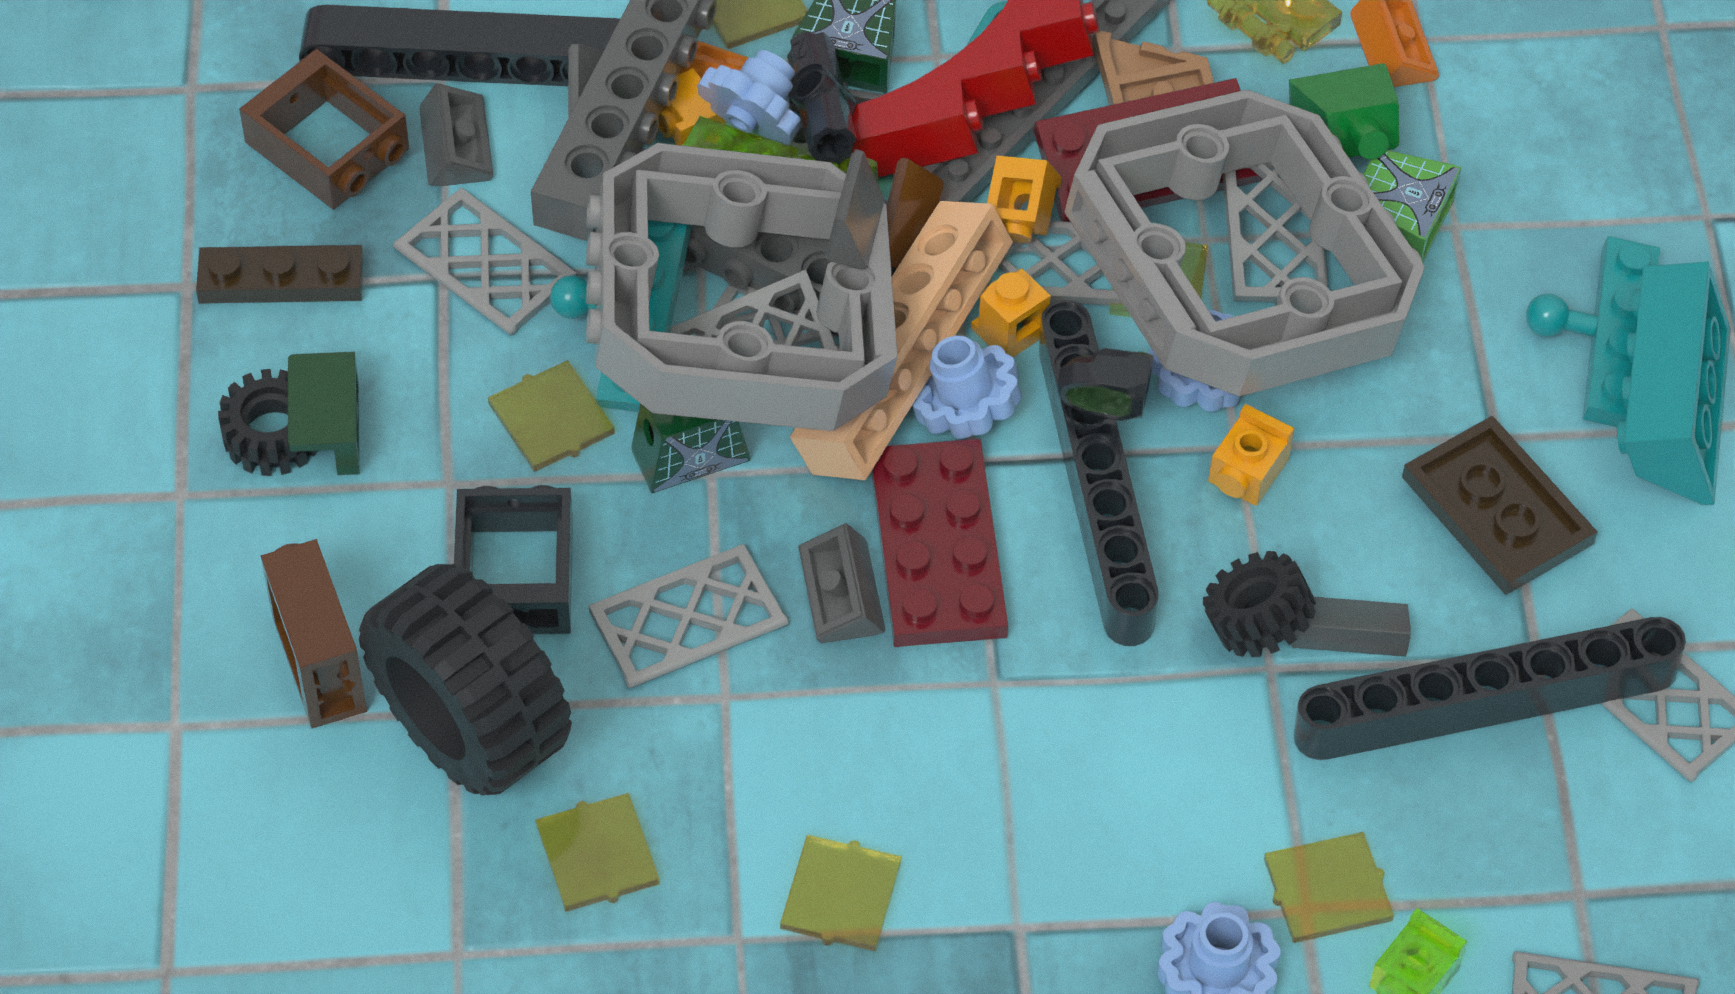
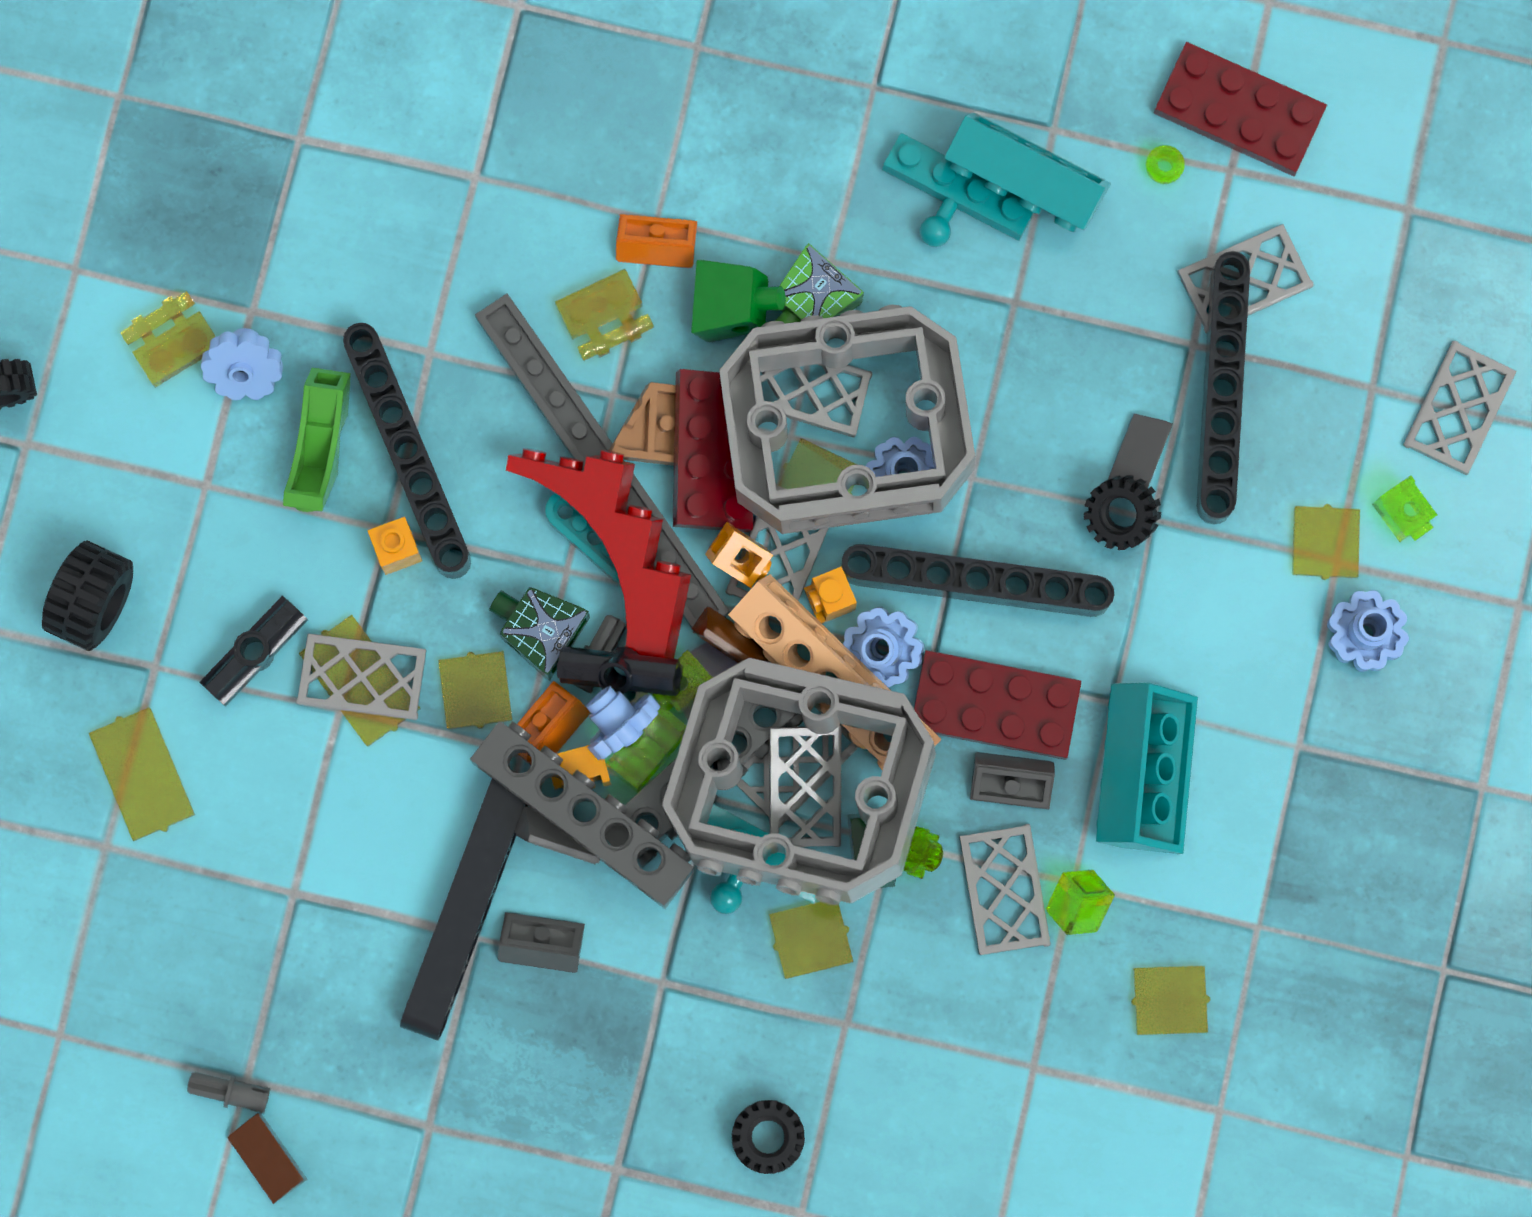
camera: 75 degrees left, 25 degrees up
(280, 274) = (631, 1100): dark brown plate -> none
(299, 94) = (479, 1056): reddish brown window -> none
(314, 633) = (971, 1148): reddish brown window -> none
(325, 406) = (775, 1097): dark green panel -> none
(465, 679) = (1064, 1057): black tyre -> none
(491, 225) = (656, 983): light grey window -> none
(540, 606) = (976, 1010): black window -> none
(698, 696) = (1080, 902): none -> clear neon green panel
(715, 497) = (924, 853): none -> clear neon green gear
(840, 893) = (1244, 851): clear yellow piece -> none
(856, 215) = (769, 685): dark grey slope -> none
(915, 732) = (1146, 768): none -> teal slope
(1107, 383) = (934, 551): black rock -> none
(1251, 455) = (992, 489): light orange brick -> none
(1499, 505) = (1079, 324): dark brown plate -> none

